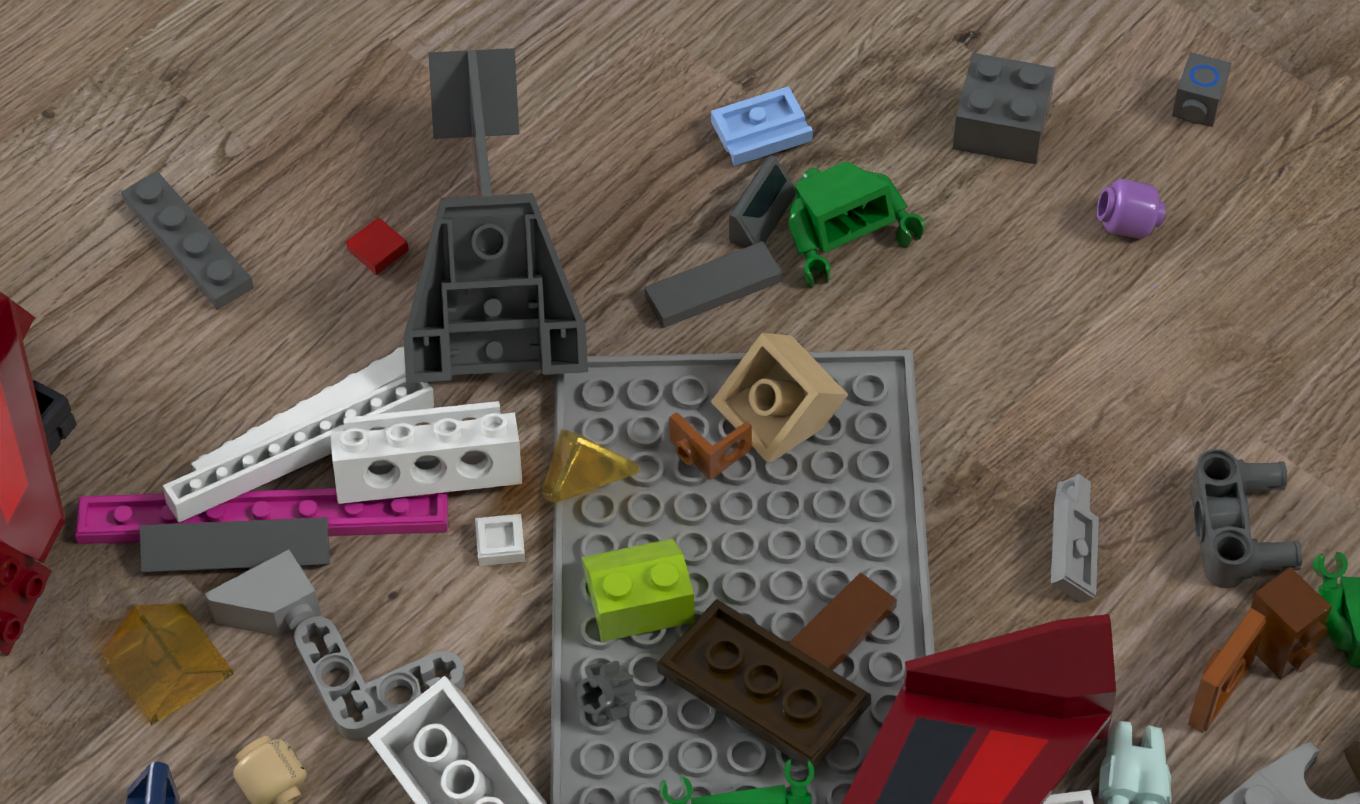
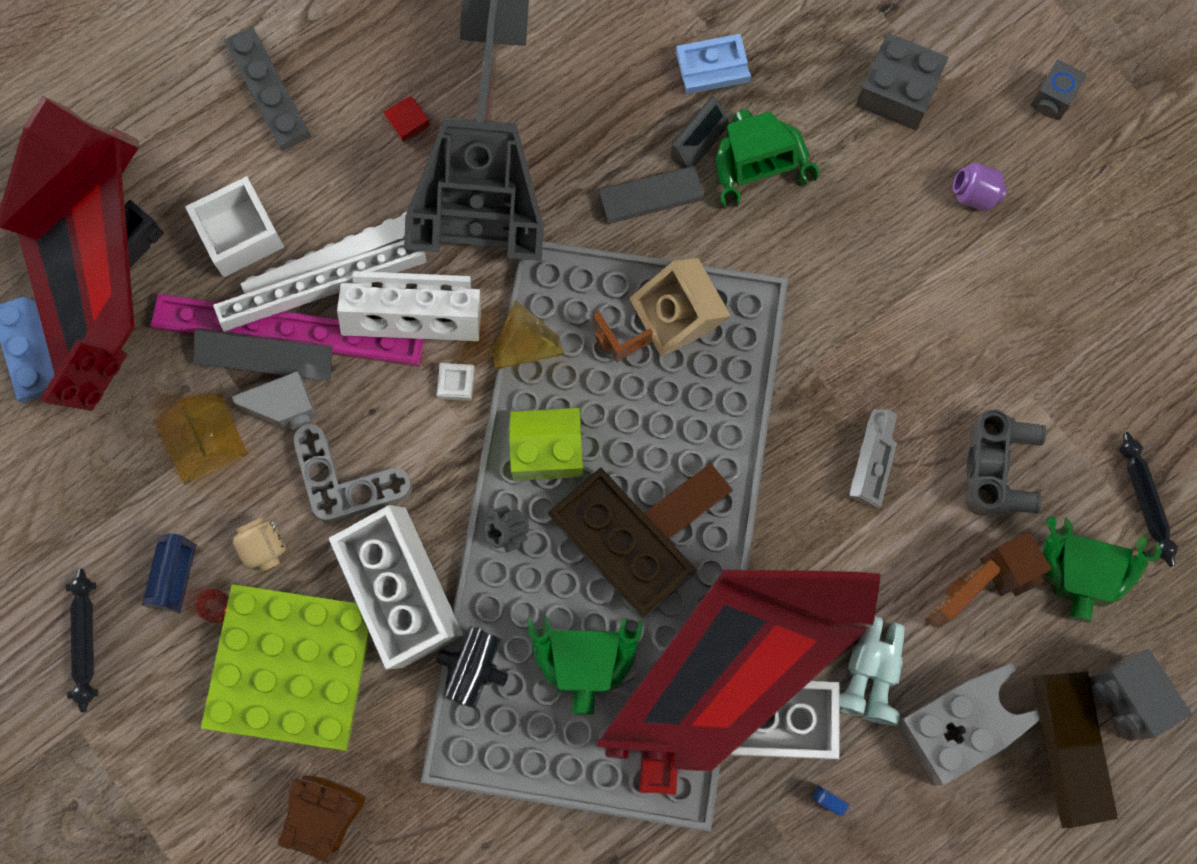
camera: 10 degrees right, 20 degrees up
(175, 396) = (234, 226): none -> white piece

